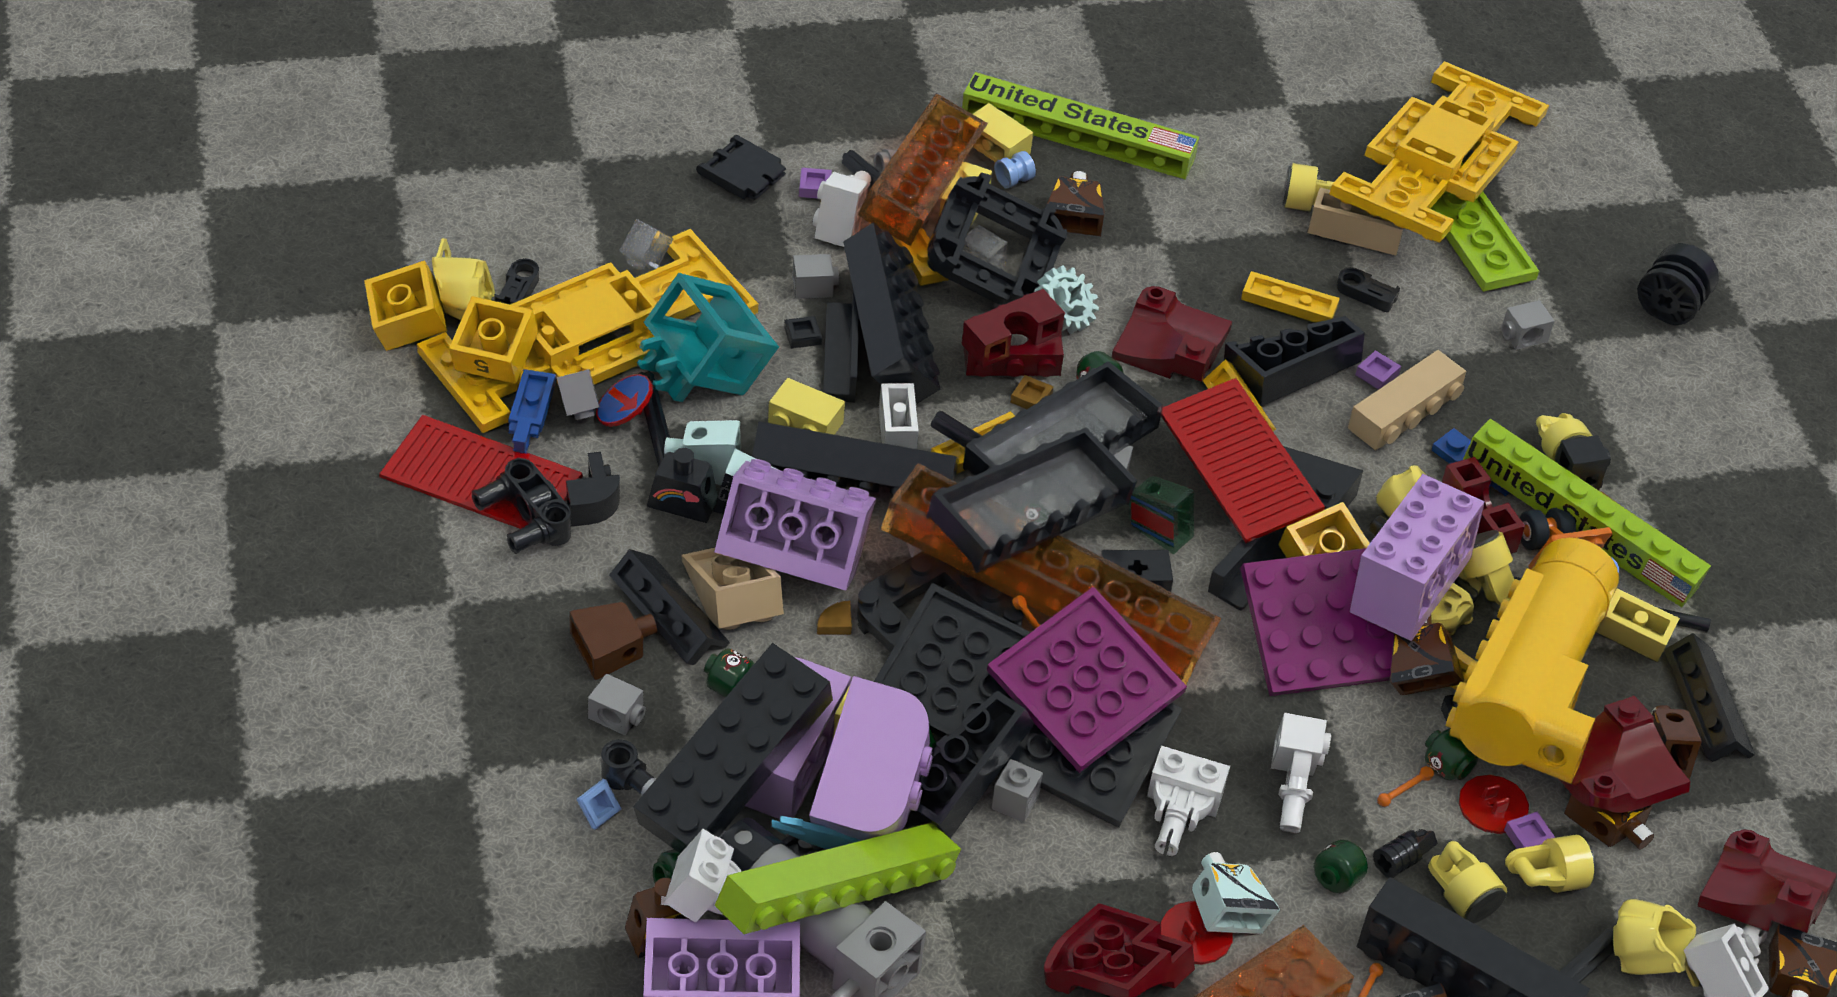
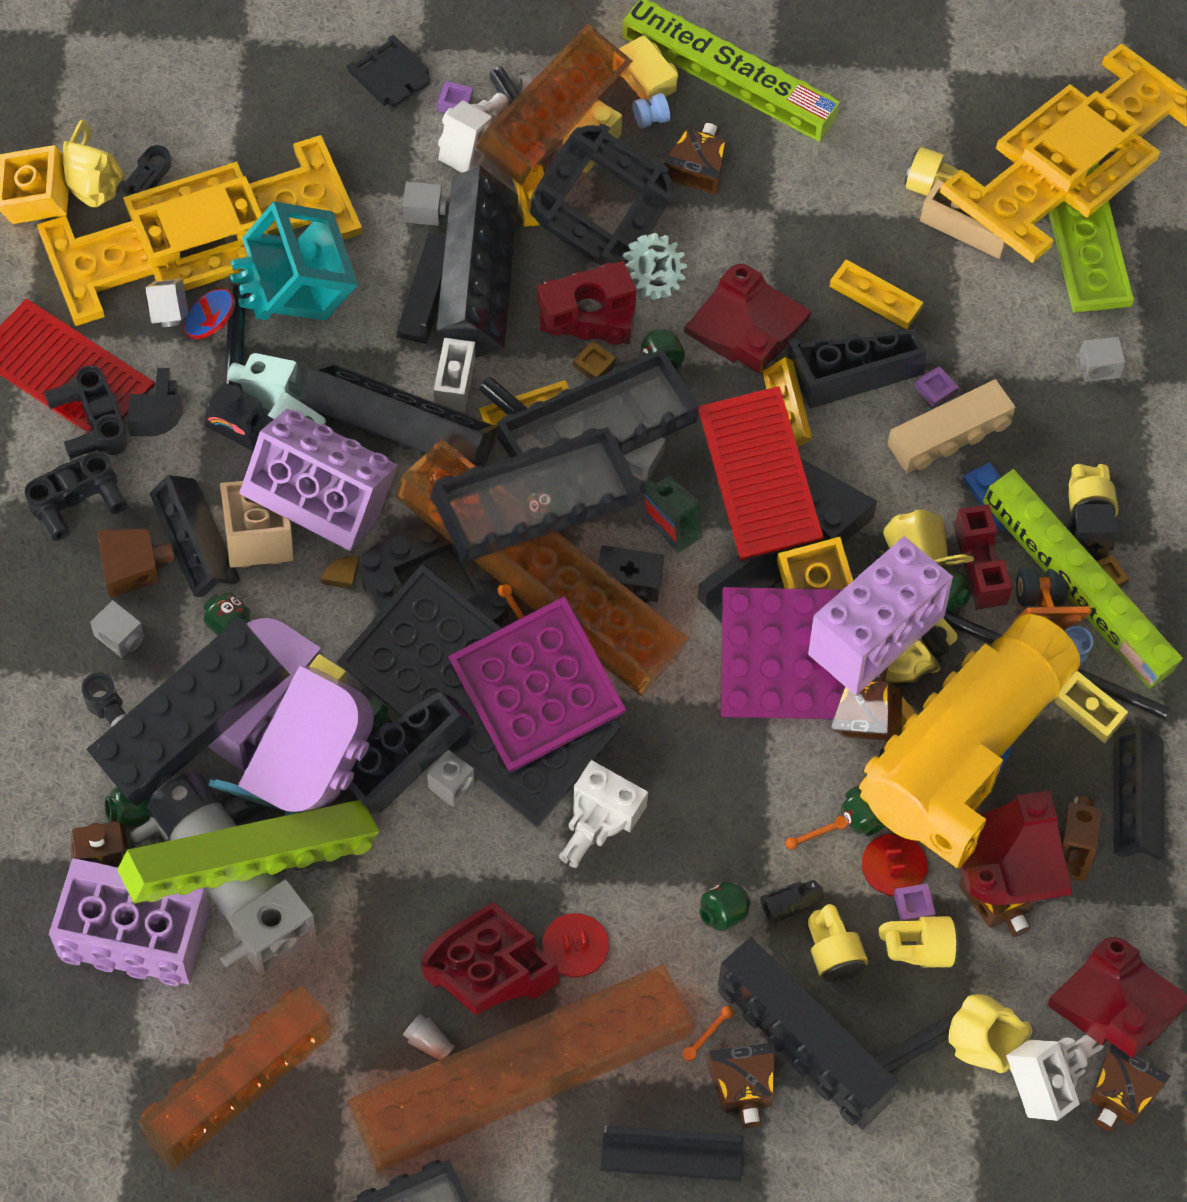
camera: 15 degrees right, 15 degrees up
(493, 340) = (98, 237): yellow brick -> none
(525, 577) = (71, 485): none -> black piece
(530, 407) = (120, 309): blue hinge -> none
(599, 804) = (76, 726): light blue slope -> none
(645, 246) = (273, 148): clear brick -> none
(700, 876) = (128, 826): white brick -> none
(803, 332) = (398, 261): black tile -> none
(805, 408) = (373, 351): light yellow brick -> none
(986, 246) = (592, 199): clear brick -> none
(1232, 897) = (611, 921): light aqua torso -> none
(1298, 750) = (721, 785): white brick -> none
(1368, 290) = (959, 296): black piece -> none
(1490, 565) = (965, 617): light yellow piece -> none

